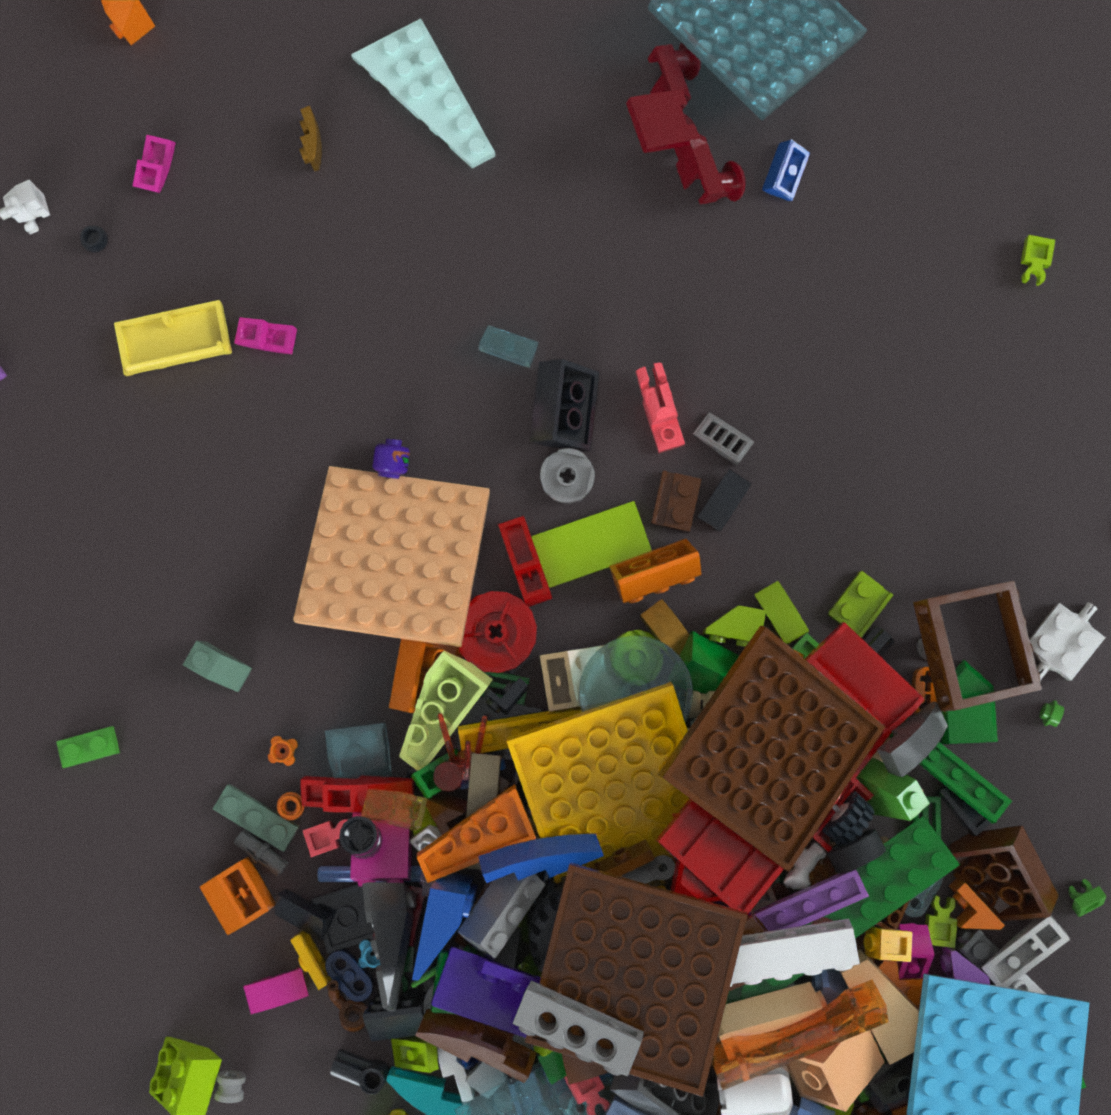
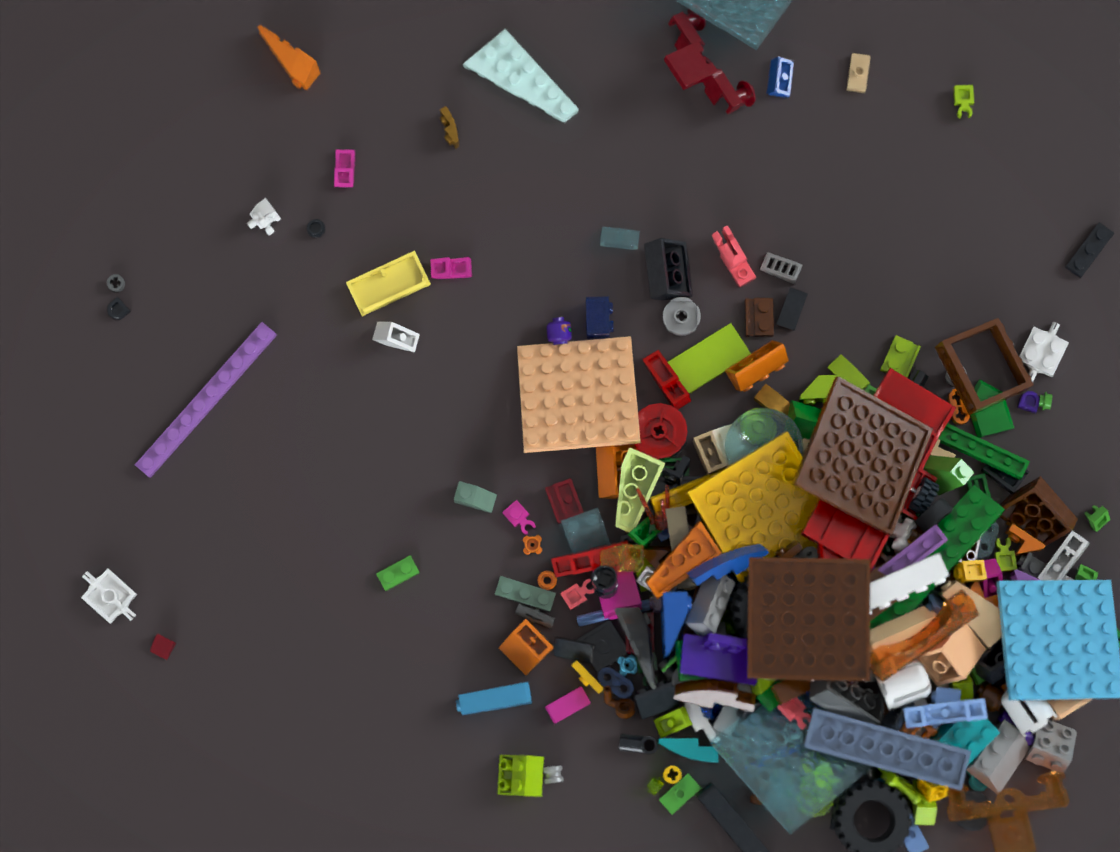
camera: 15 degrees left, 5 degrees down
(165, 414) = (396, 336): none -> white slope
(175, 961) = (494, 699): none -> dark azure slope
(272, 703) = (517, 515): none -> dark pink plate
(341, 700) = (564, 500): none -> dark red plate
(448, 776) = (652, 529): clear red plate -> none
(449, 451) = (597, 317): none -> clear blue brick
(594, 1023) = (749, 646): light grey brick -> none
(897, 188) = (858, 73): none -> tan plate
(913, 740) = (955, 435): dark grey slope -> none
(1027, 708) = (1029, 401): none -> dark purple tile
(1050, 979) = (1085, 573): none -> bright green plate

